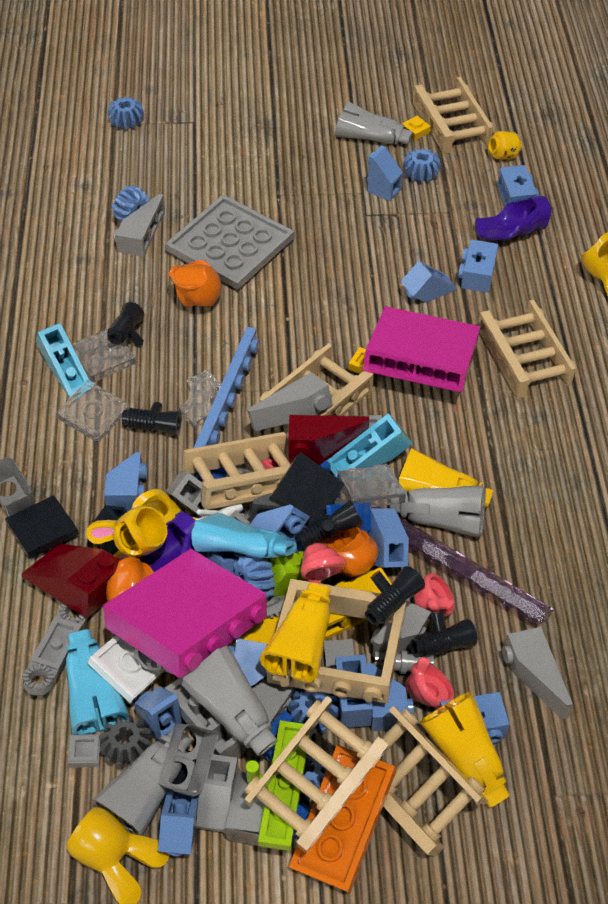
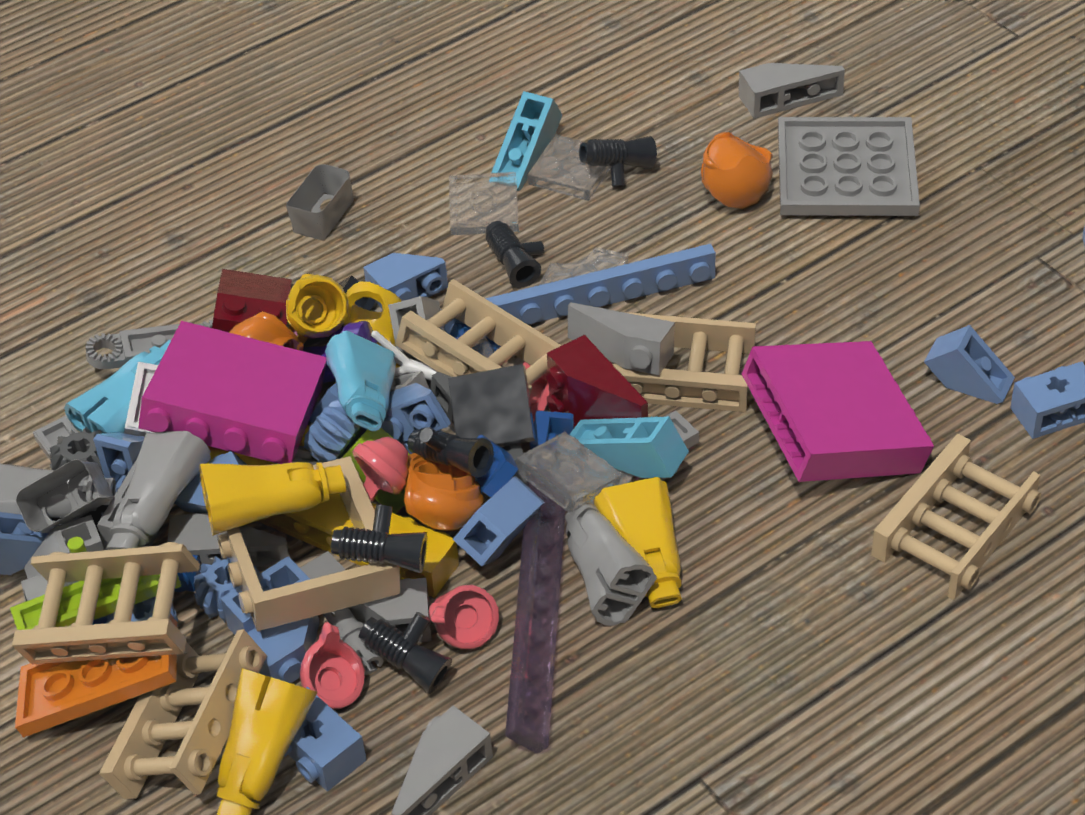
camera: 60 degrees right, 5 degrees down
(41, 526) = (298, 251): black tile -> none
(128, 201) = (802, 50): medium blue gear -> none

